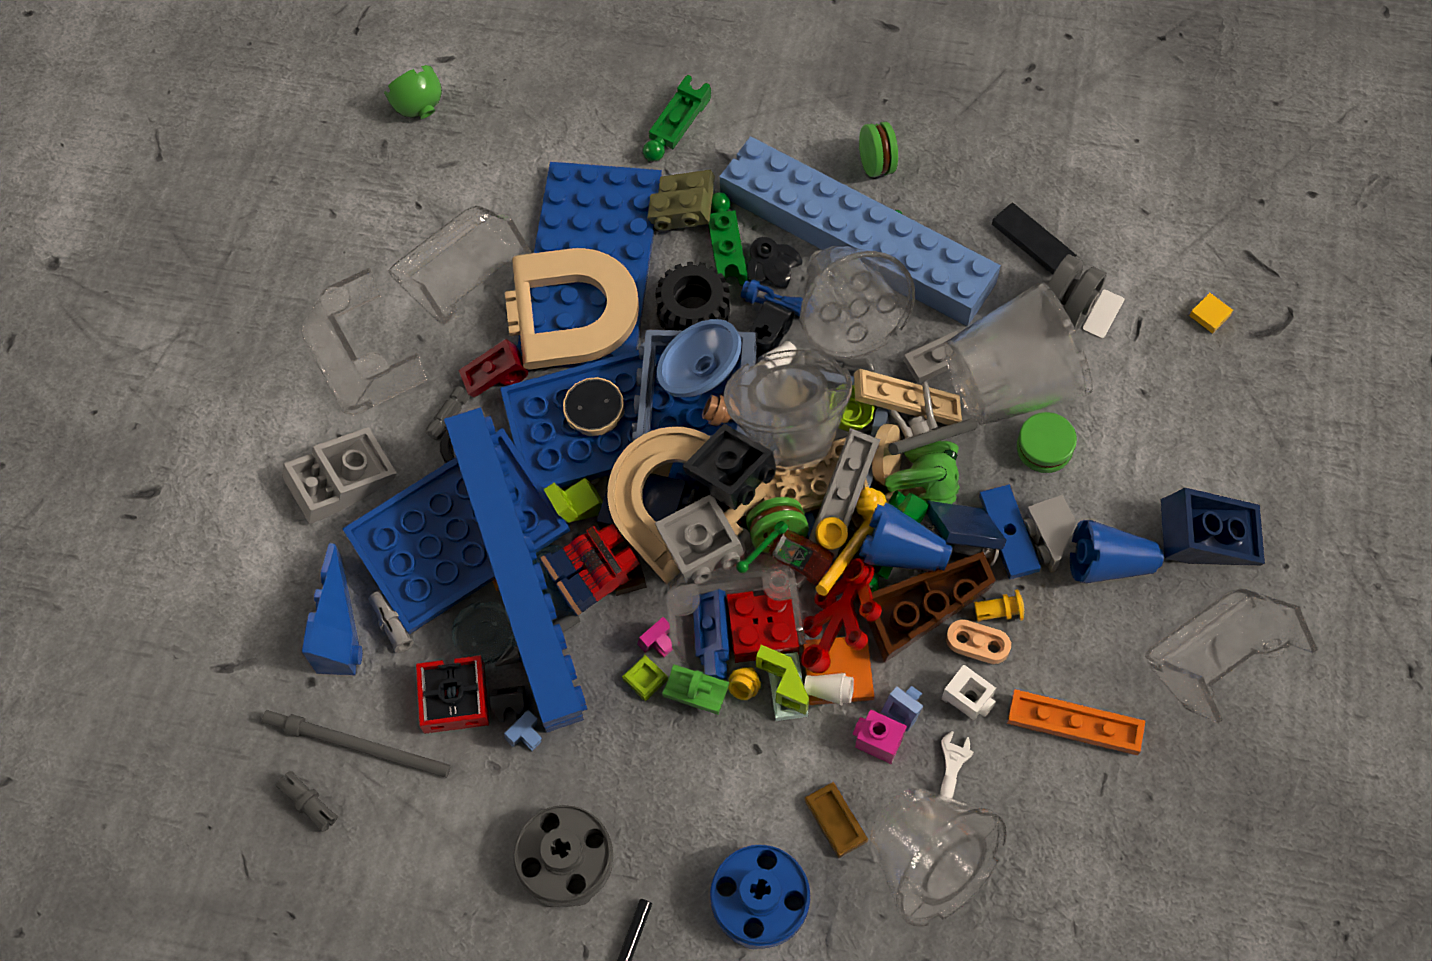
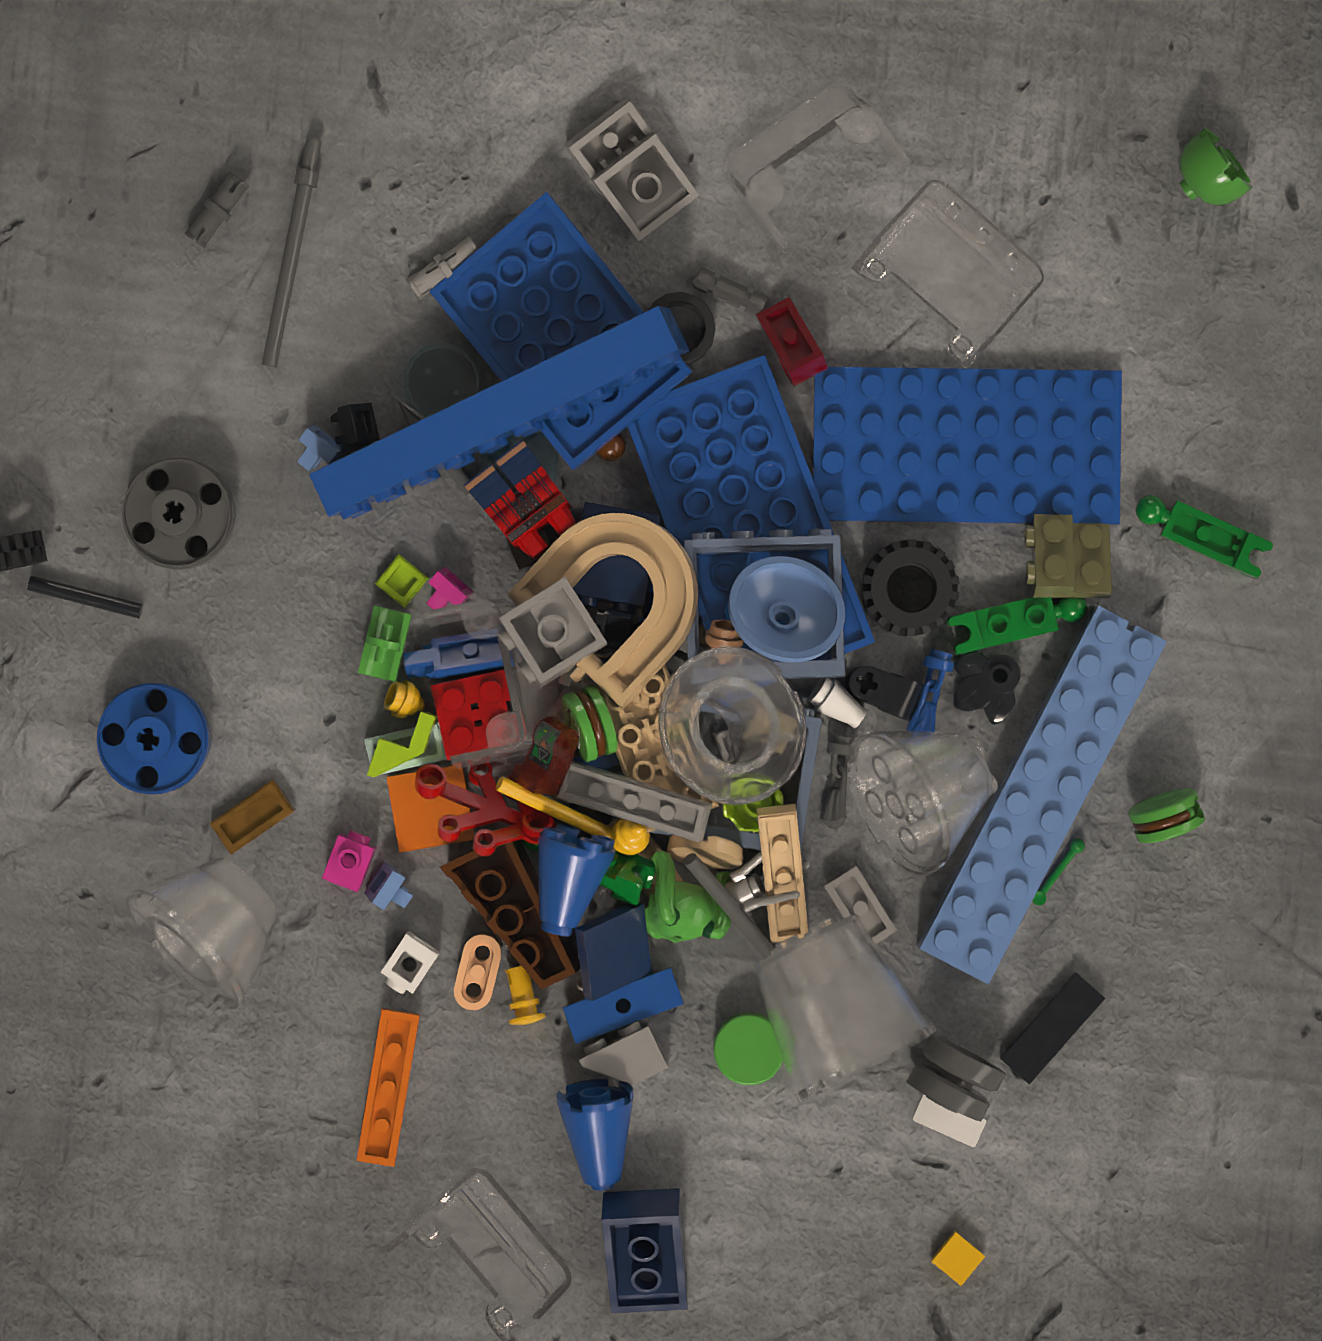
camera: 85 degrees right, 25 degrees up
(331, 632) = (412, 206): blue wedge -> none
(452, 694) = (354, 358): piece -> none
(574, 344) = (946, 417): tan piece -> none
(576, 502) = (612, 472): lime slope -> none
(593, 406) = (740, 478): black tile -> none
(731, 466) = (636, 663): black plate -> none
(780, 528) = (570, 728): green hinge -> none
(830, 687) = (398, 802): white cone -> none
(831, 533) = (578, 790): yellow tile -> none
(954, 758) = (334, 948): white piece -> none

